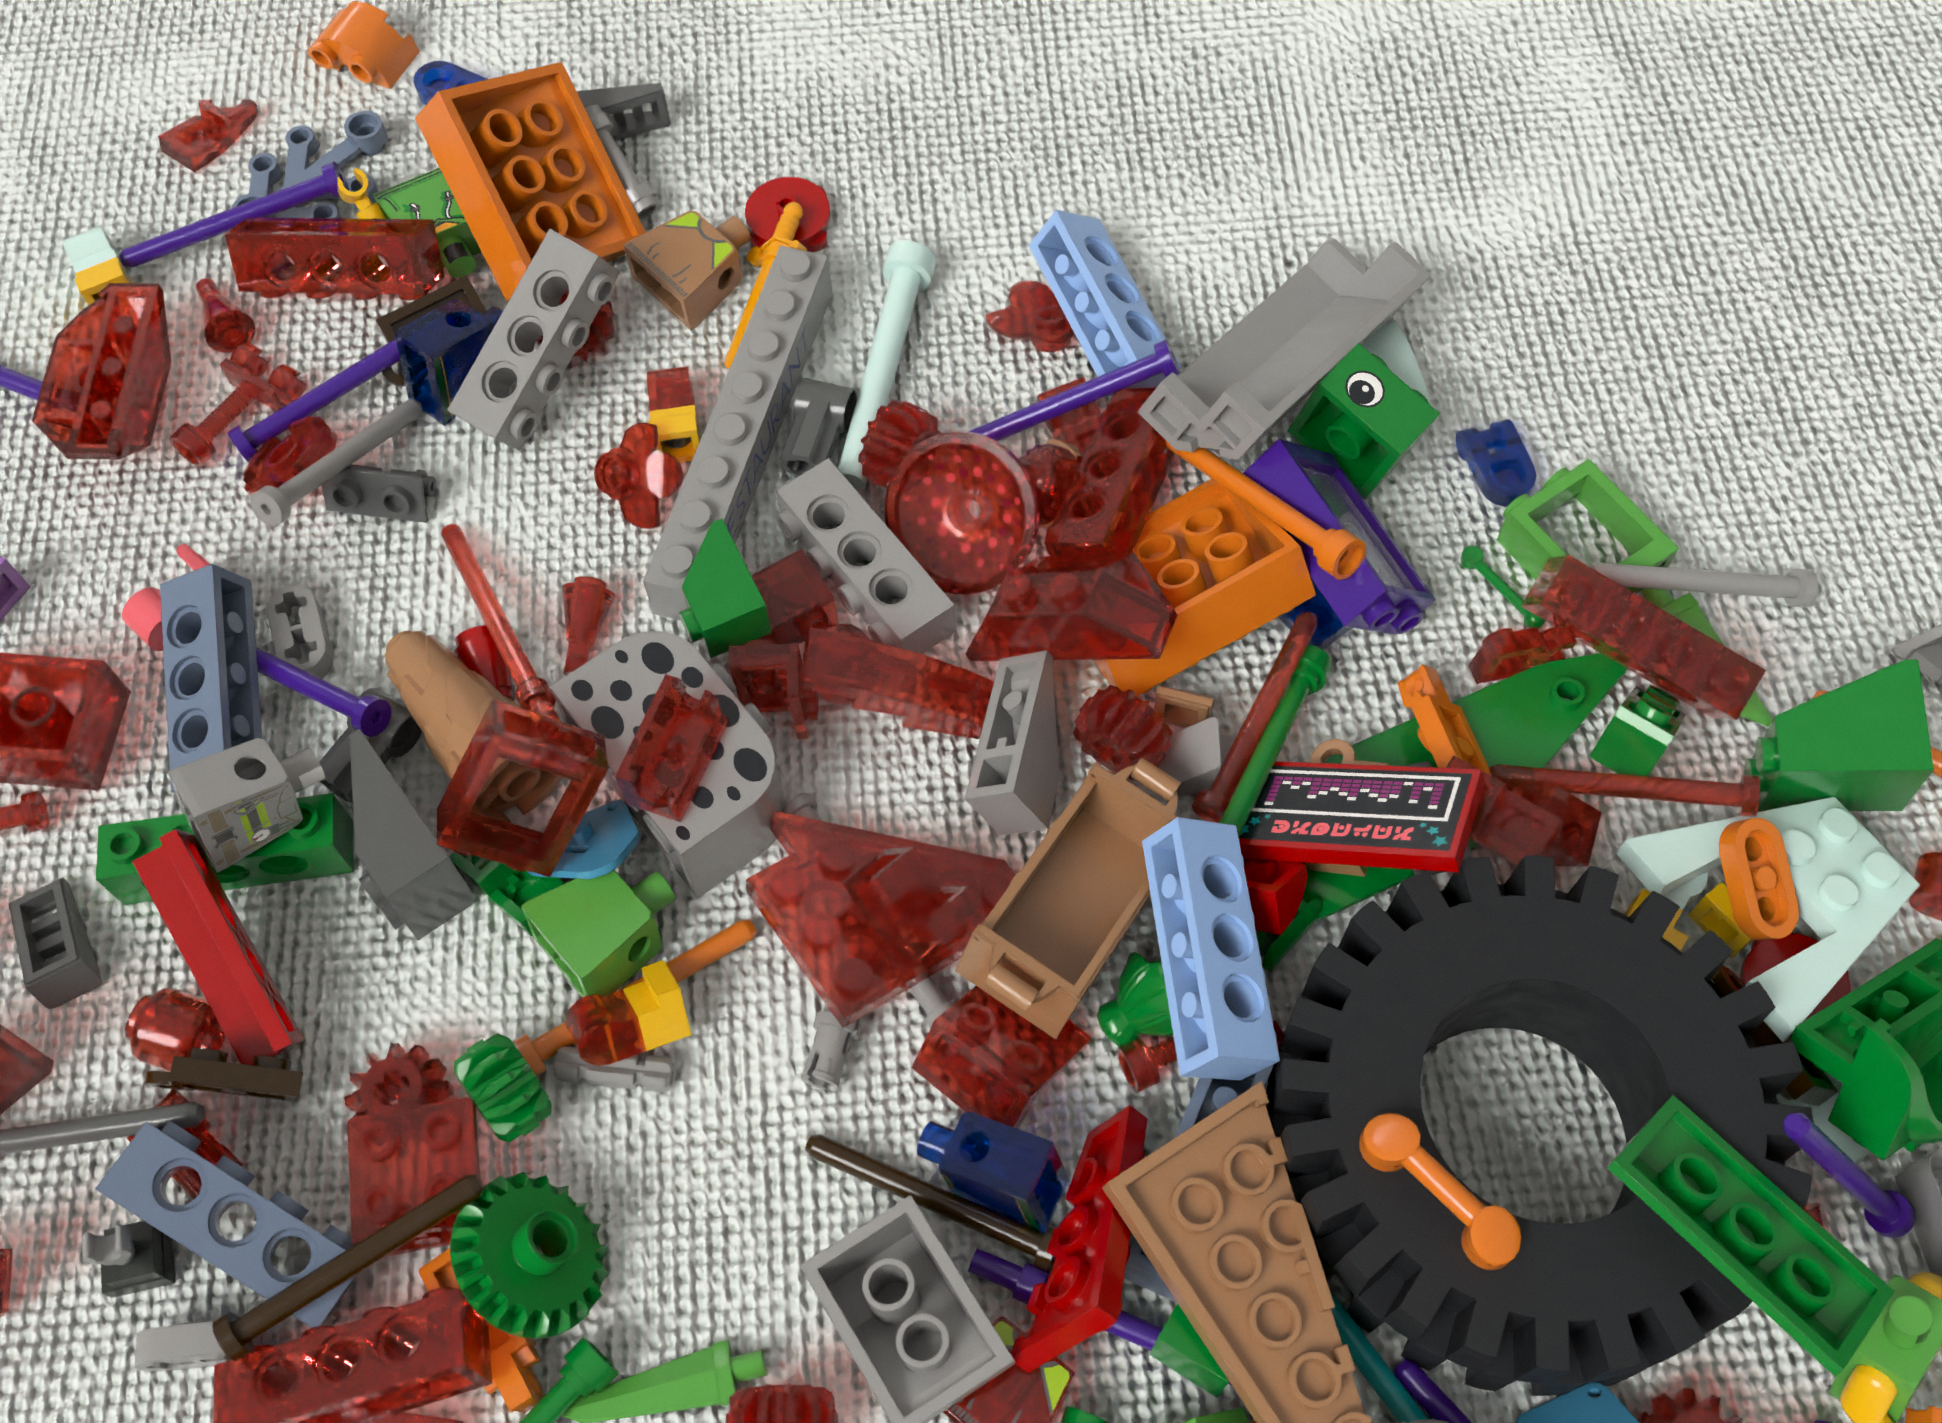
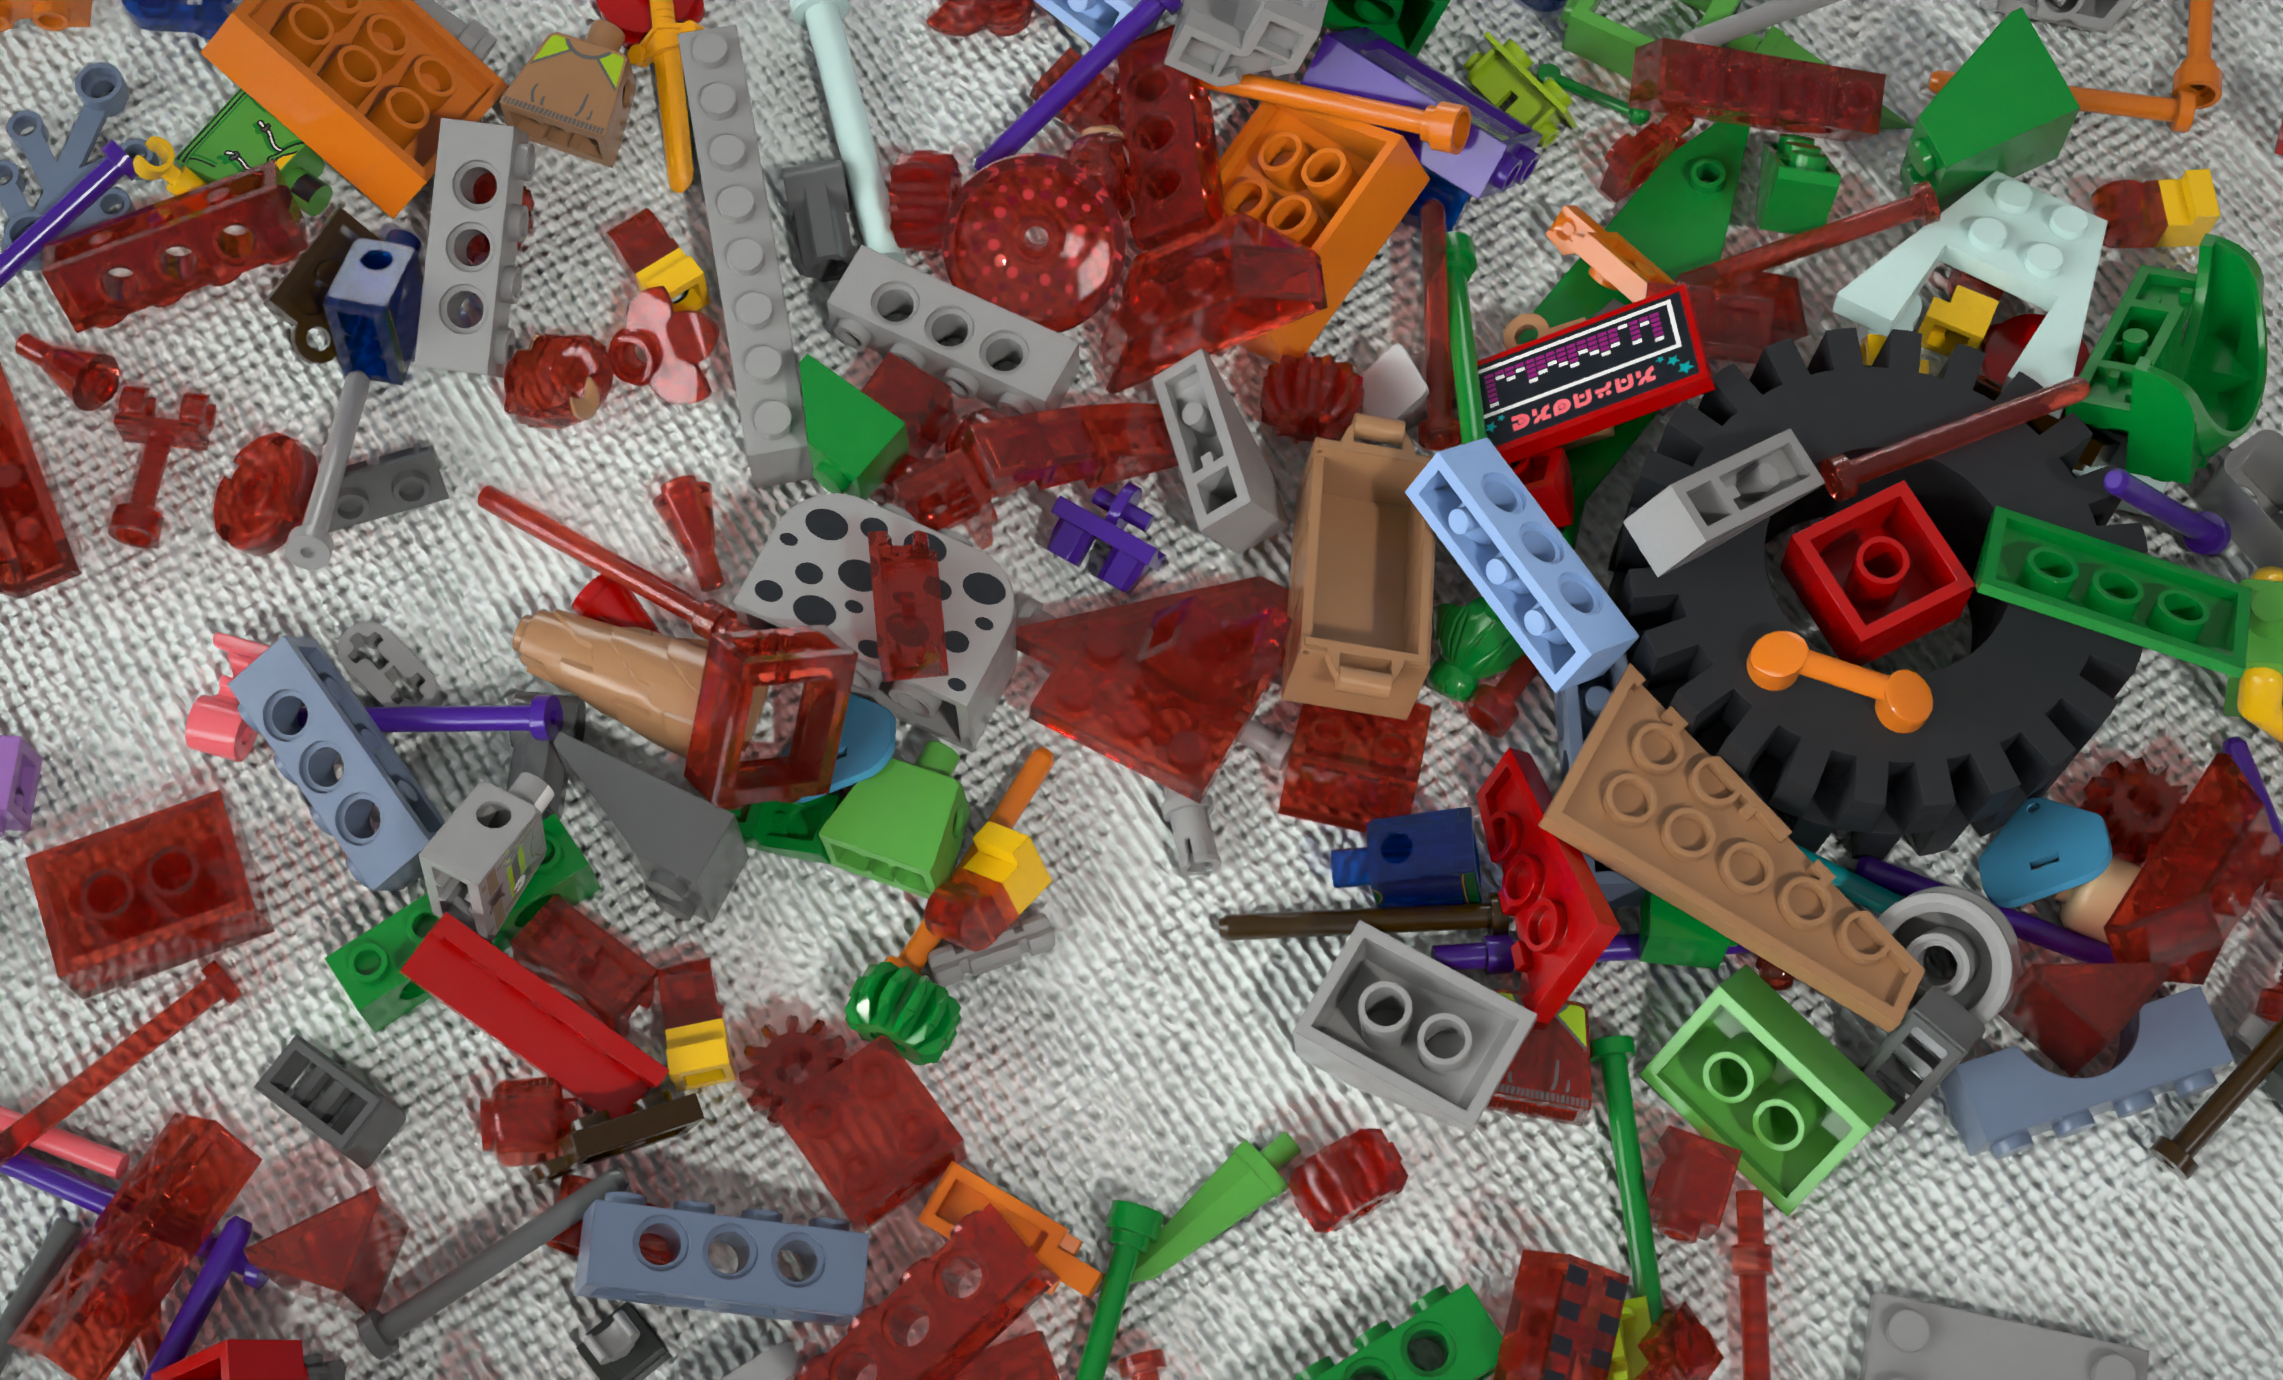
camera: 30 degrees left, 5 degrees up
(236, 1333) = (864, 1238): dark brown bar -> none
(291, 927) = (585, 964): none -> clear red hinge
(314, 400) = (255, 406): dark purple bar -> none
(347, 1016) = (695, 1025): none -> leg
(507, 1274) = (1024, 1150): green gear -> none
(545, 466) = (557, 380): none -> clear red hair
(881, 755) = (1079, 528): none -> dark purple hips
(1182, 706) = (1356, 346): medium nougat slope -> none
(1410, 973) = (1722, 501): none -> light grey slope
(1433, 538) = (1505, 72): none -> lime hinge
(1529, 1107) = (1876, 575): none -> red brick
(1539, 1002) = (1844, 475): none -> clear red bar
(1758, 879) = (1970, 278): orange plate -> none

